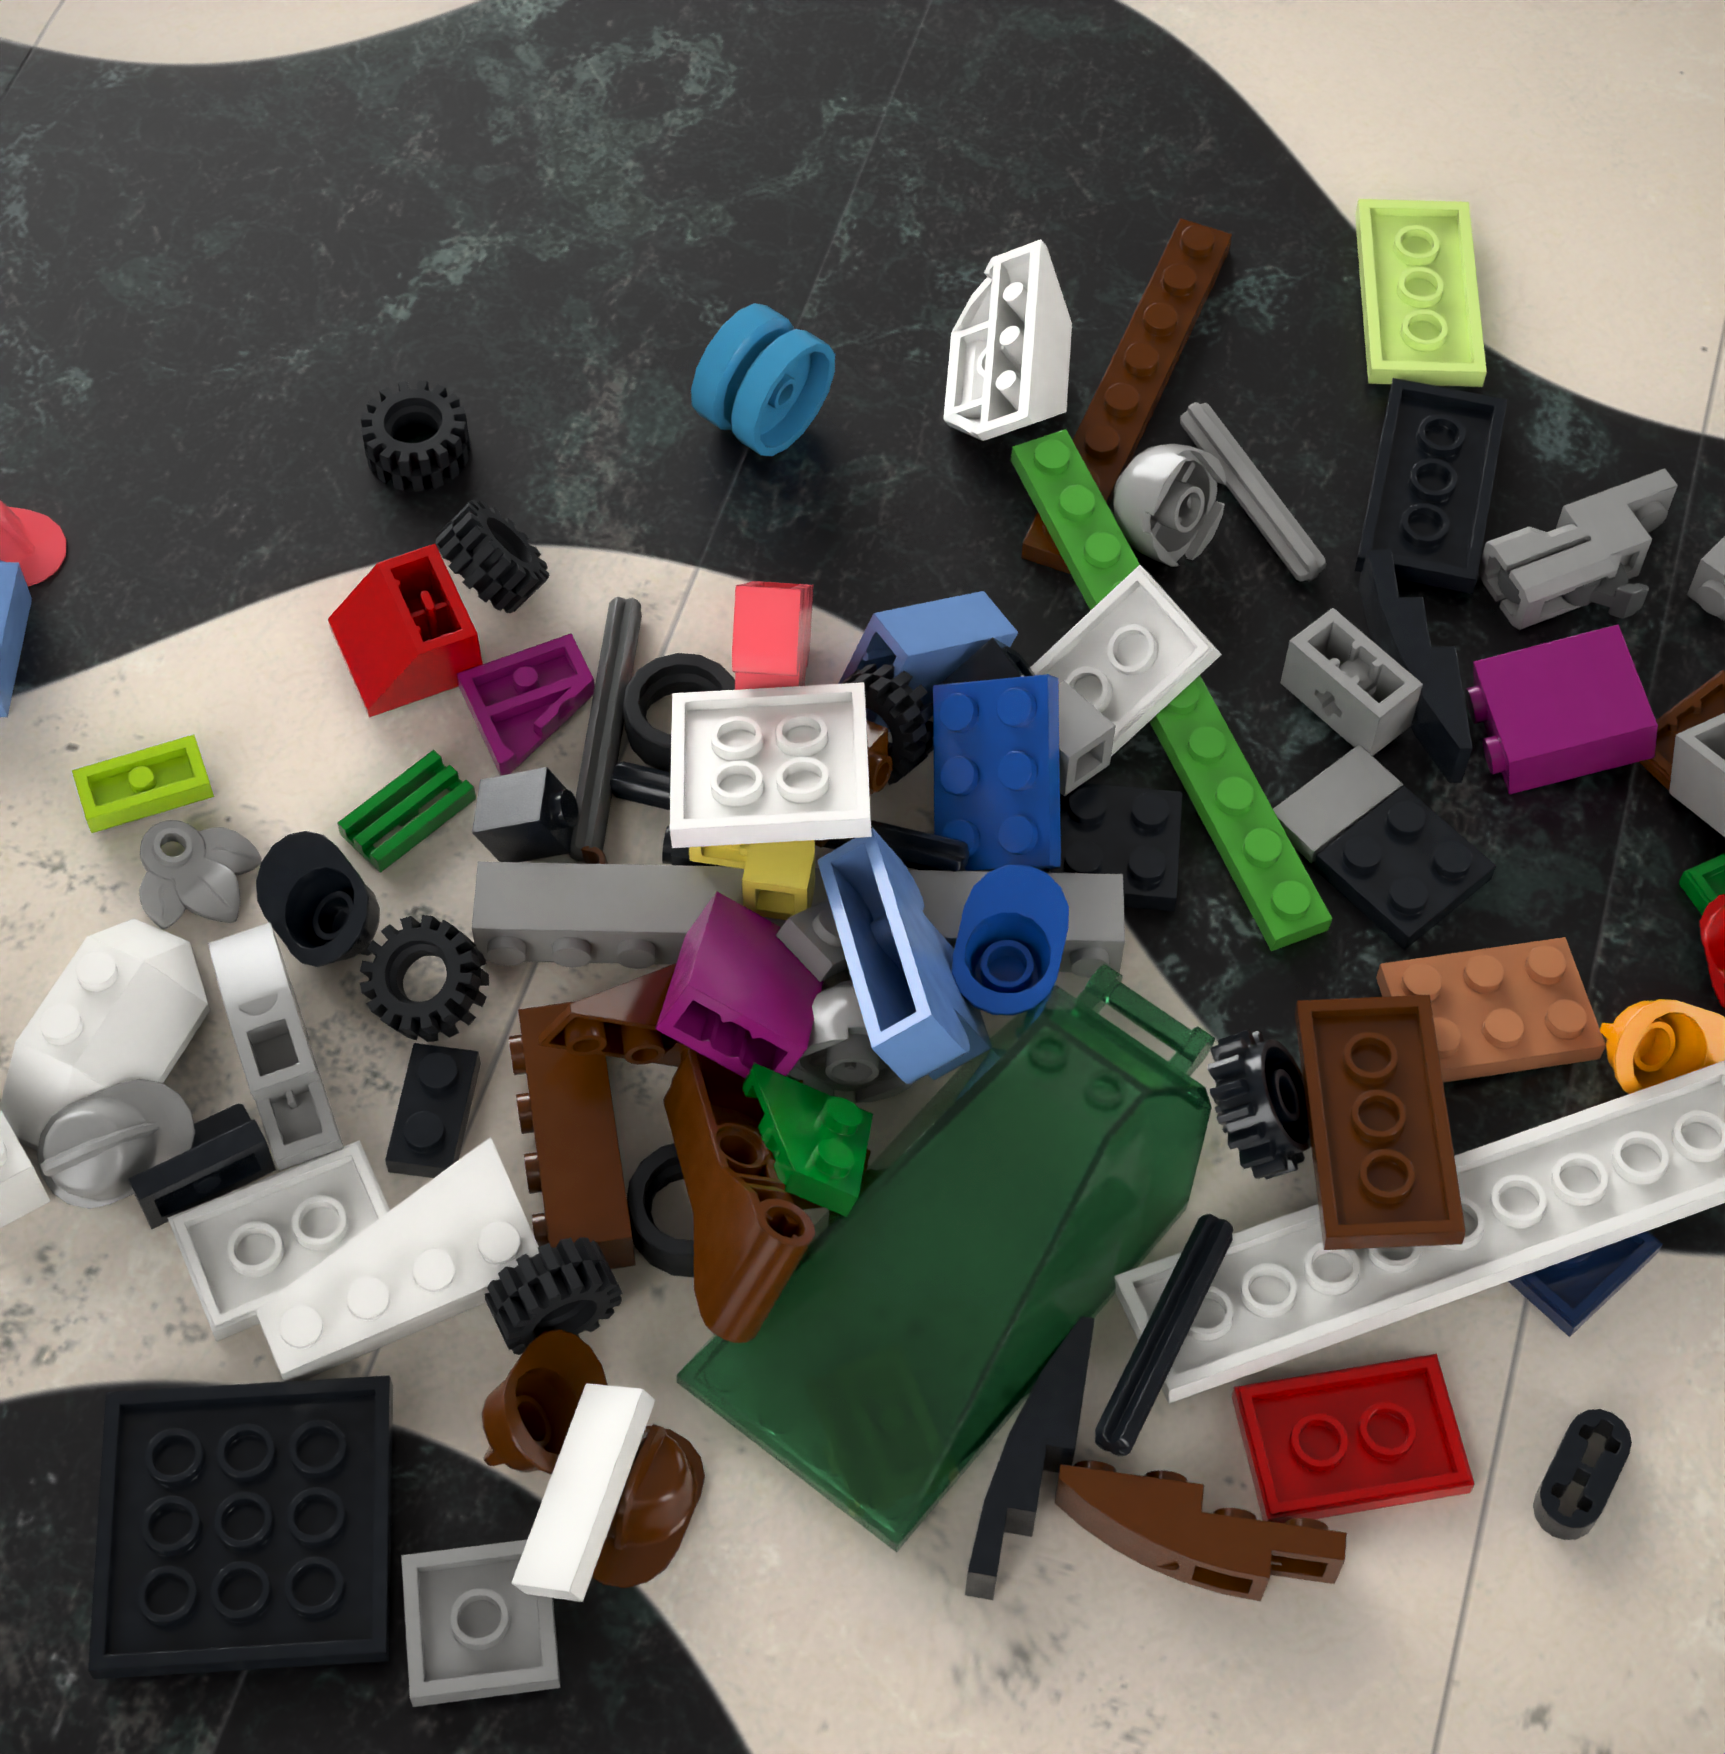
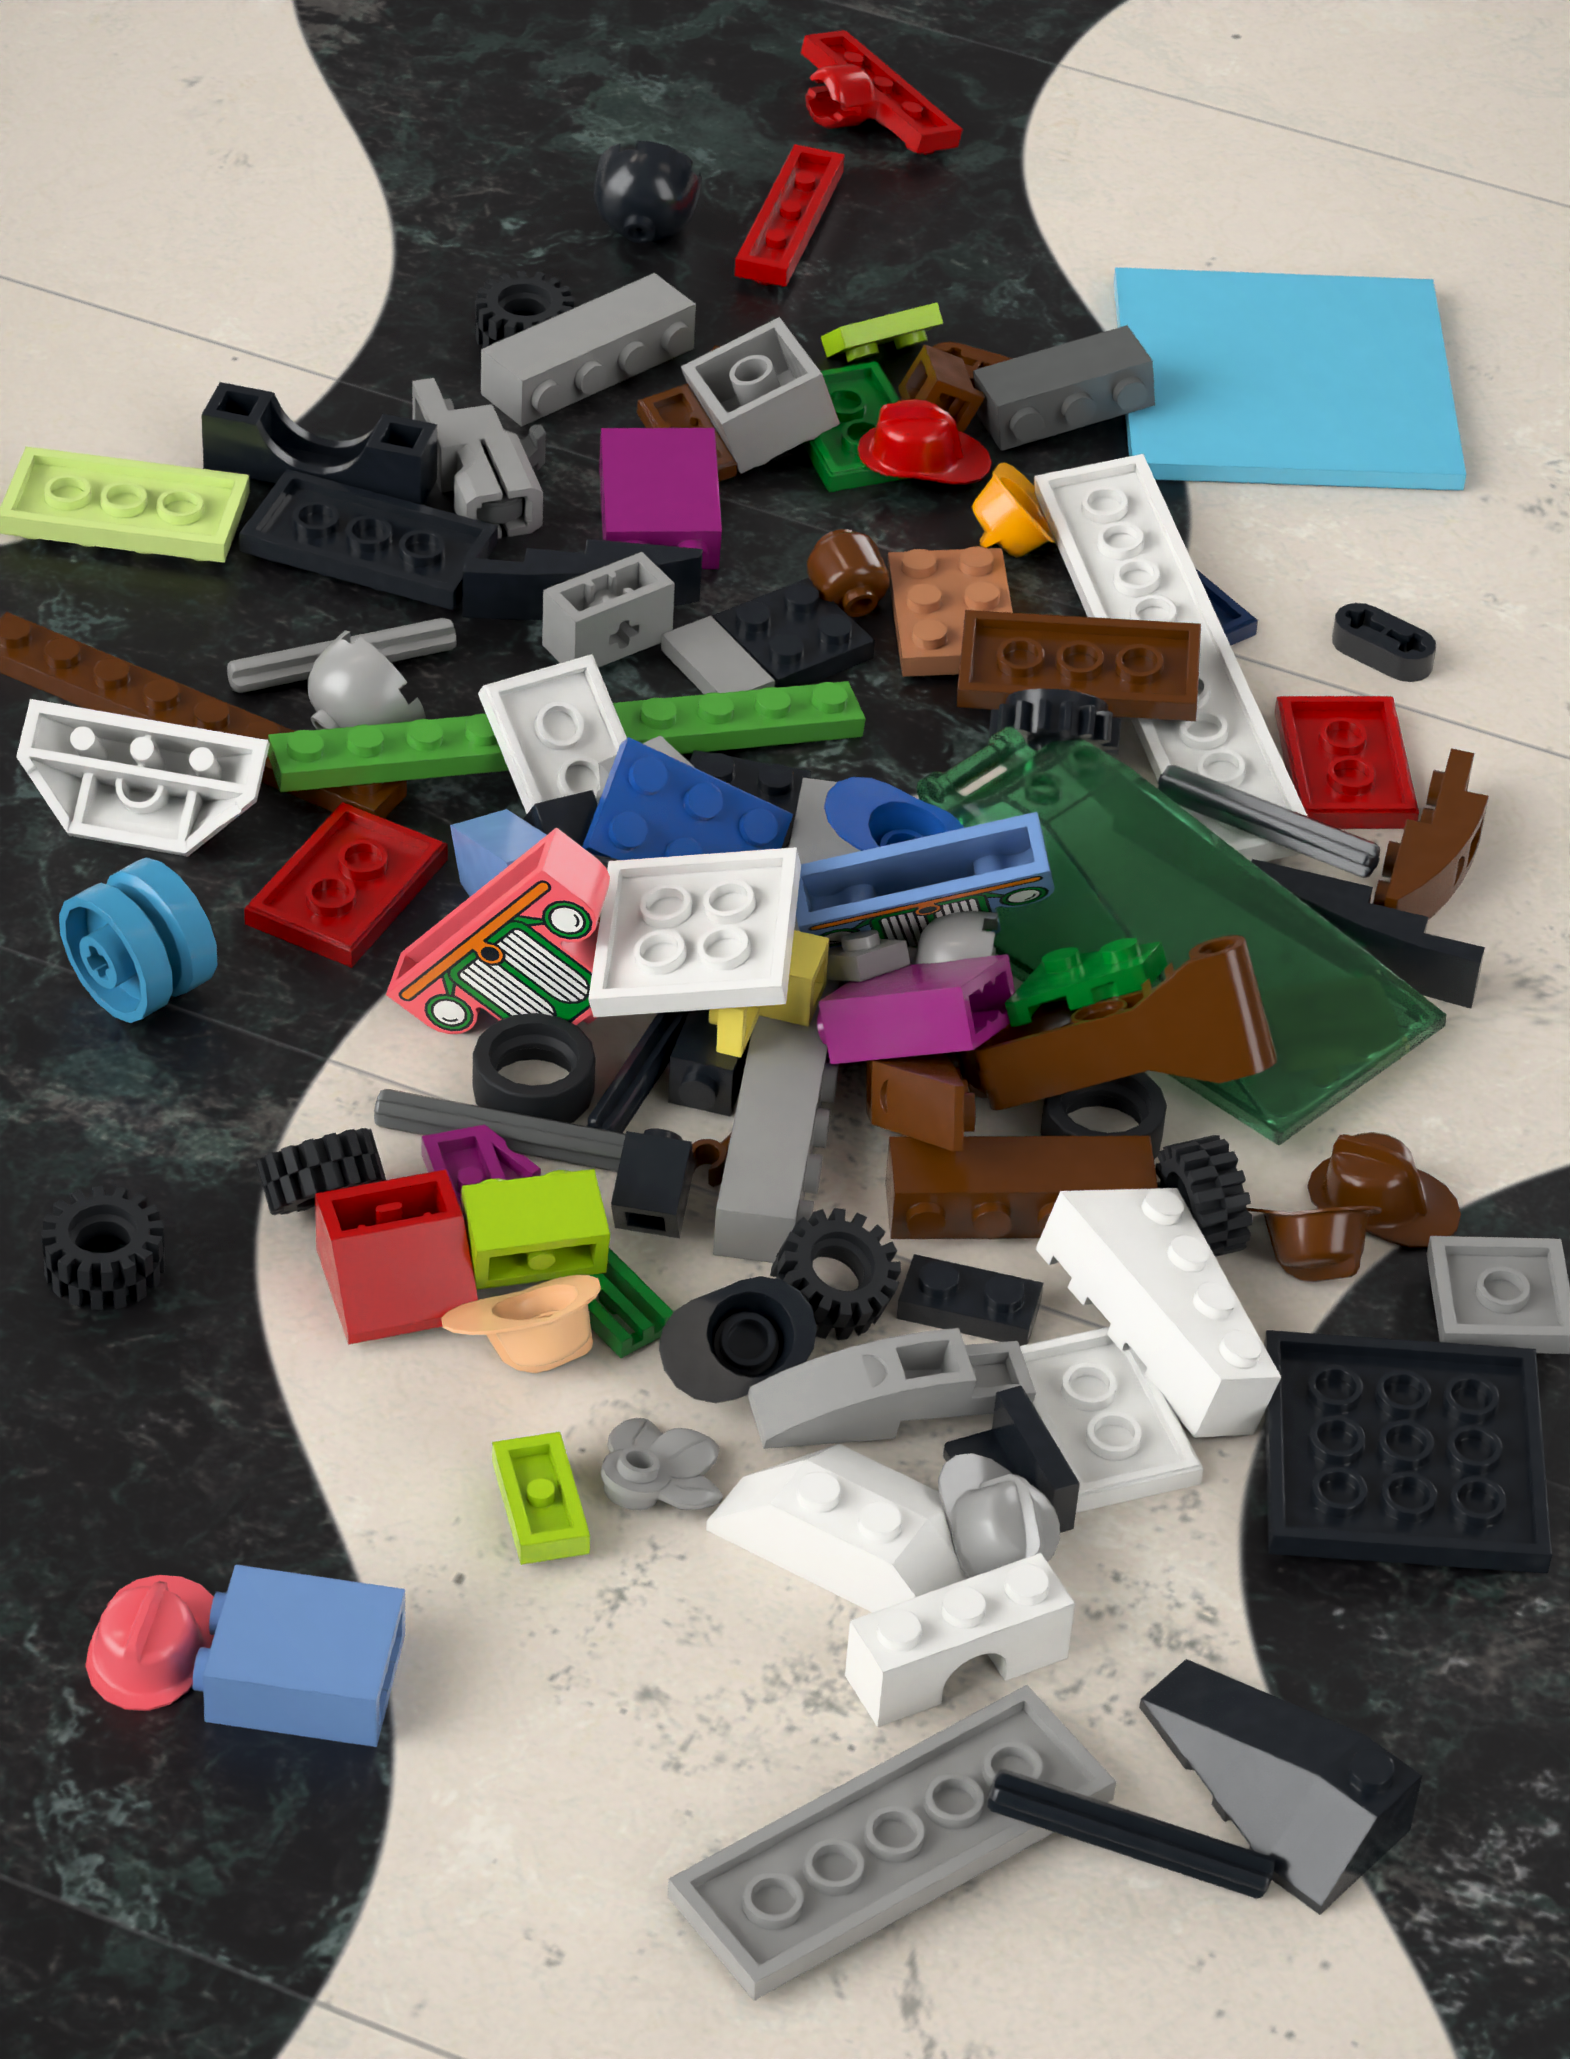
camera: 85 degrees left, 15 degrees down
(338, 735) = (533, 1326): none -> light nougat piece
(435, 721) = (535, 1228): none -> lime brick
(583, 1492) = (1402, 1184): white tile -> none
(925, 540) = (346, 884): none -> red tile
(1507, 898) = (848, 570): none -> reddish brown head
(1536, 447) = (255, 437): none -> black arch

